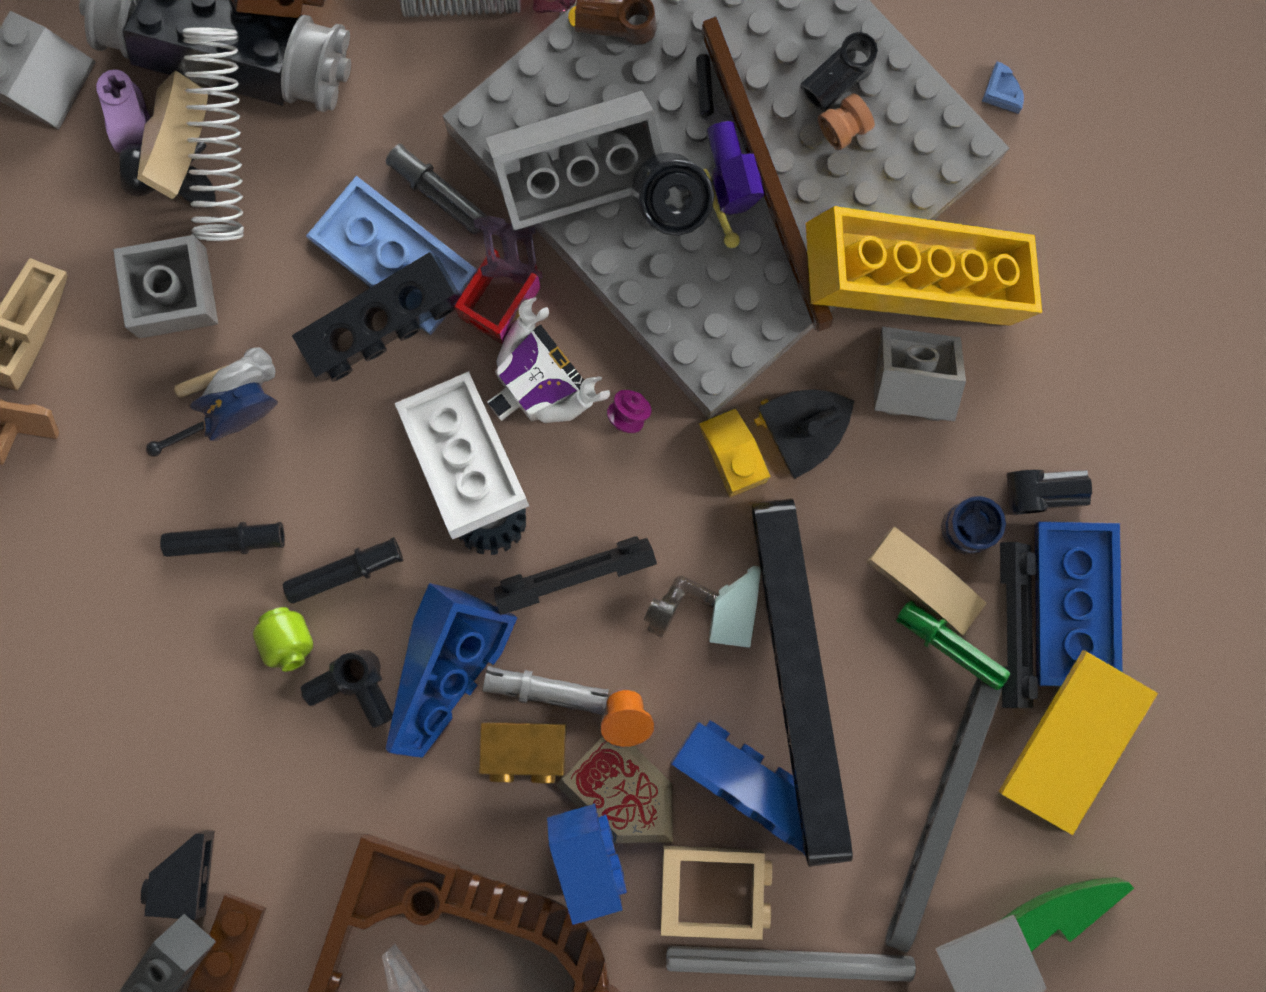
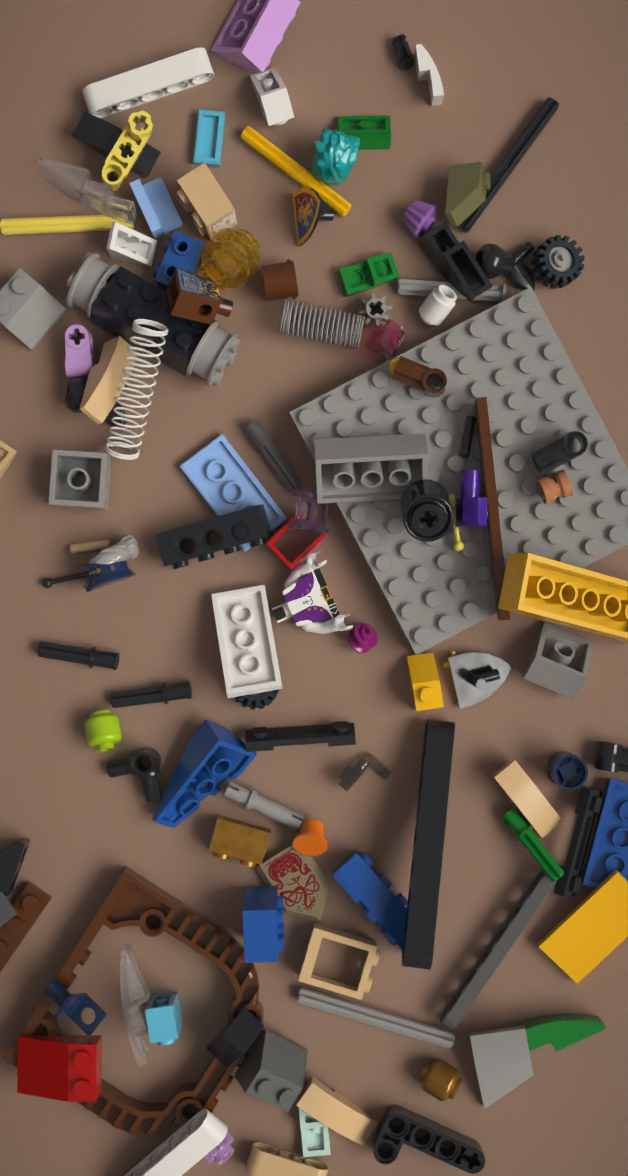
camera: 15 degrees right, 5 degrees up
(735, 611) = (398, 785): light aqua slope -> none

